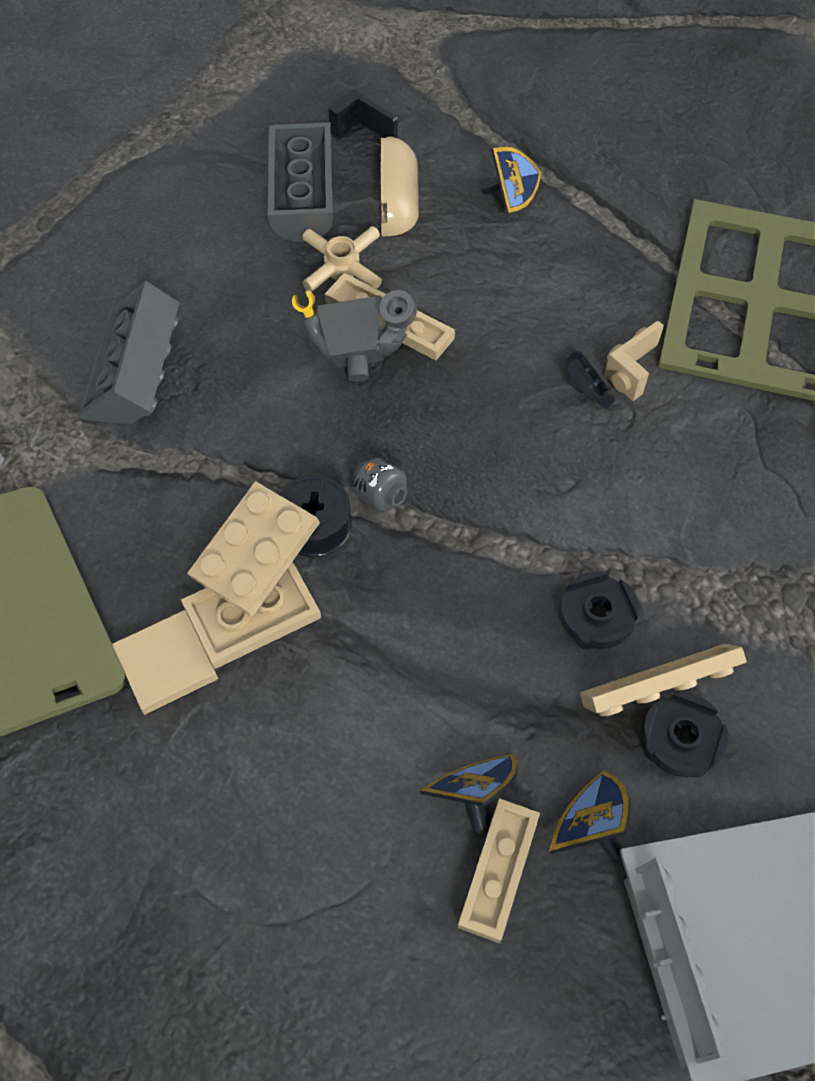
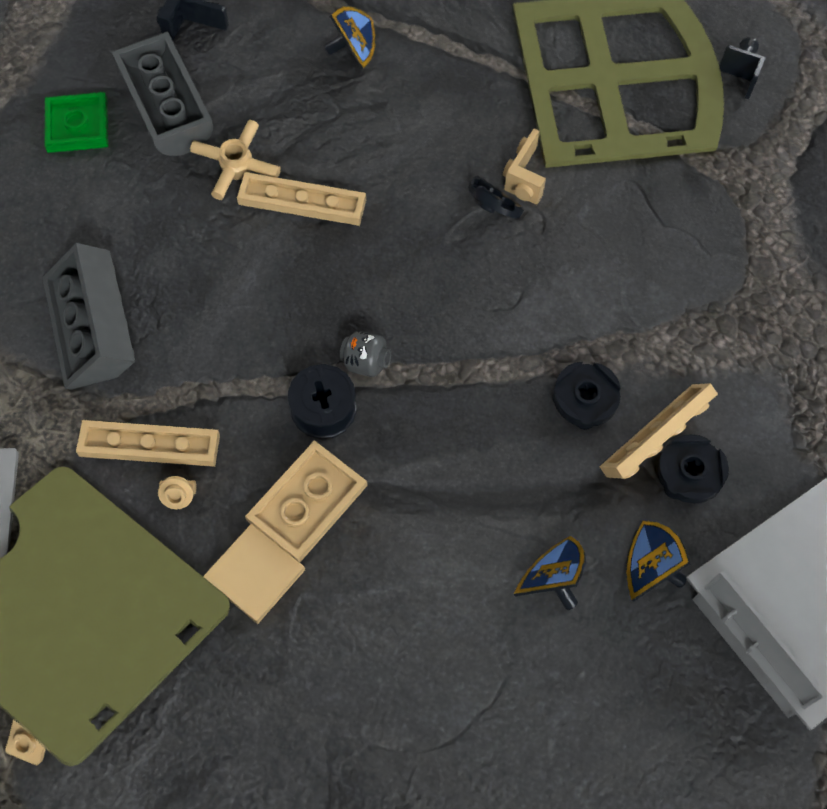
camera: 25 degrees left, 5 degrees up
(127, 495) = (148, 443): none -> tan plate
(129, 551) = (176, 492): none -> tan plate
(211, 182) = (76, 122): none -> green tile
(253, 548) = (289, 449): tan plate -> none
(358, 329) = (282, 223): dark grey torso -> none
(398, 187) = (251, 72): tan brick -> none
(499, 871) = (600, 630): tan plate -> none

